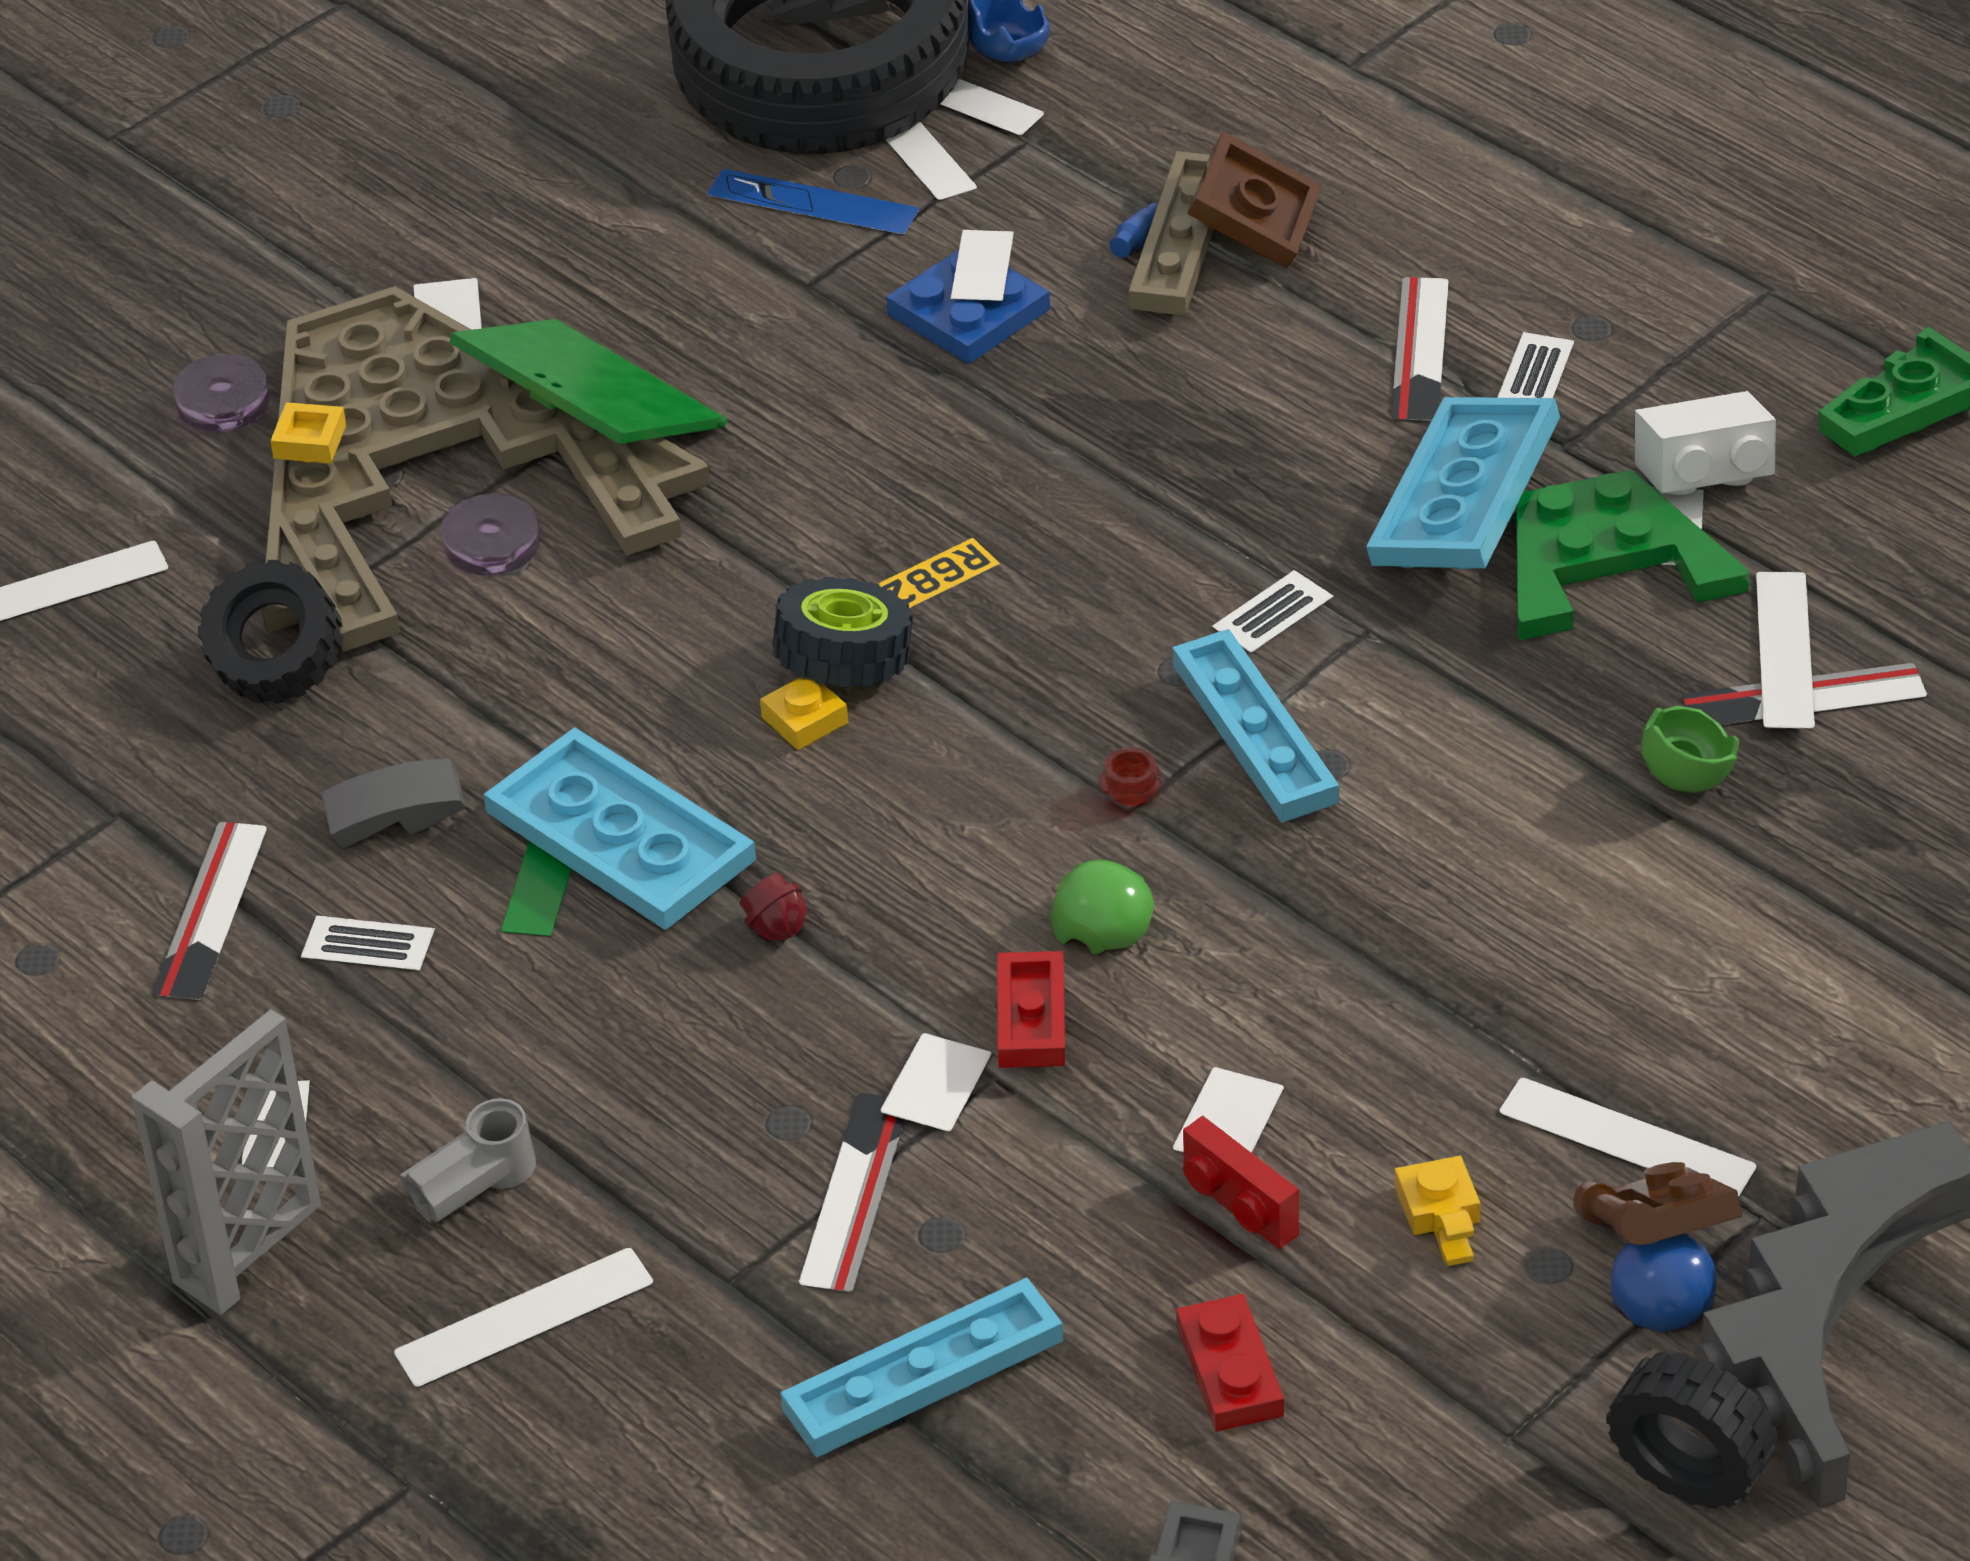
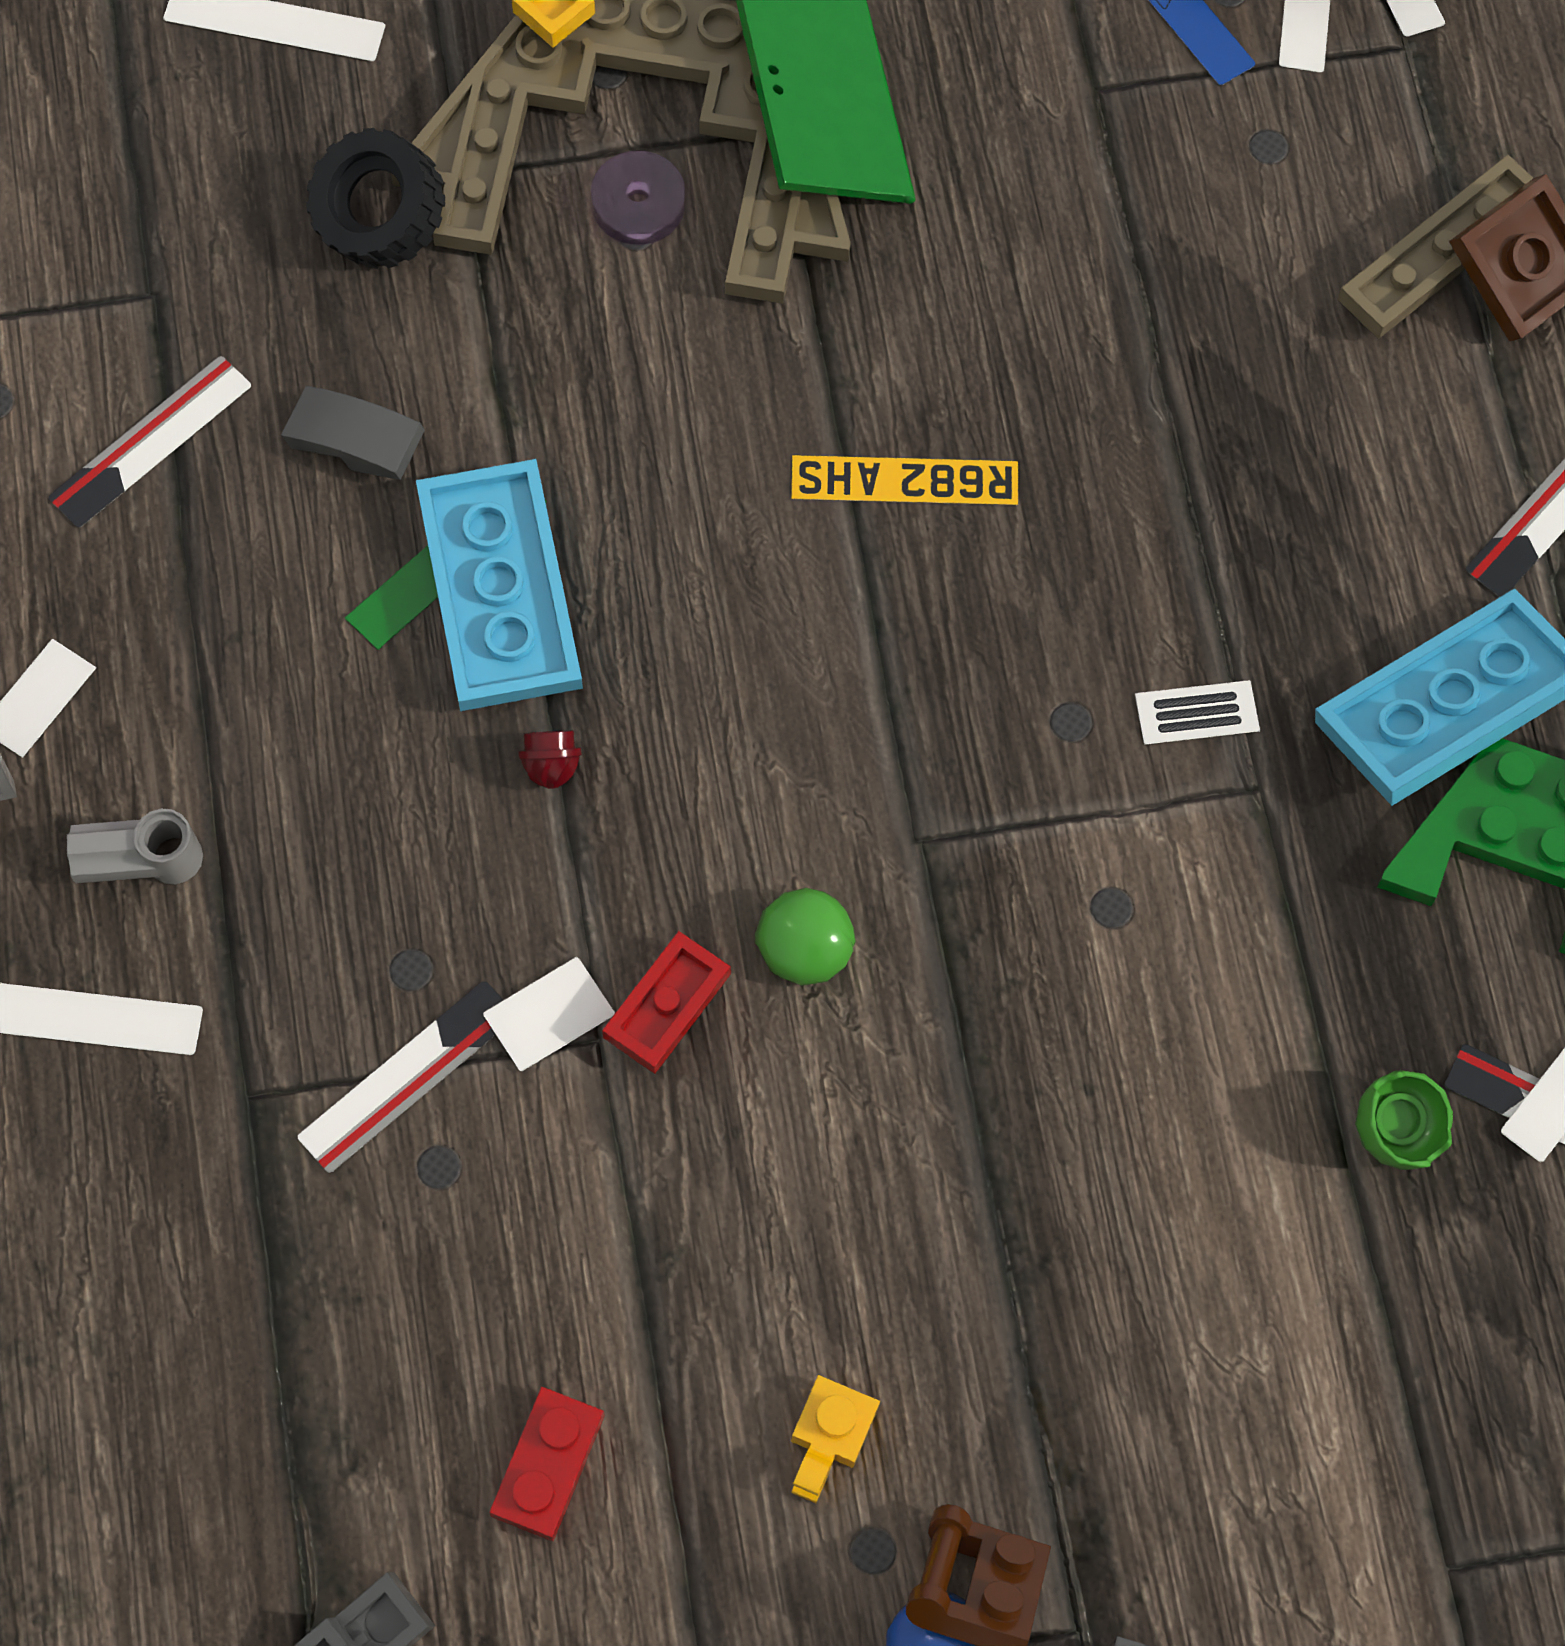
camera: 30 degrees right, 25 degrees up
(368, 942) = (239, 559): white sticker -> none
(803, 711) = (737, 558): yellow plate -> none
(842, 631) = (824, 476): black wheel -> none
(921, 1367) = (310, 1298): medium azure plate -> none
(964, 325) = (1209, 202): blue plate -> none
(982, 265) = (1240, 177): white sticker -> none
(1130, 776) = (937, 801): clear red plate -> none
(1133, 232) = (1408, 215): blue piece -> none
(1236, 1105) = (743, 1215): white sticker -> none
(1240, 1182) = (677, 1273): red plate -> none
(1255, 725) = (1074, 834): medium azure plate -> none
(1619, 1133) = (1038, 1473): white sticker -> none

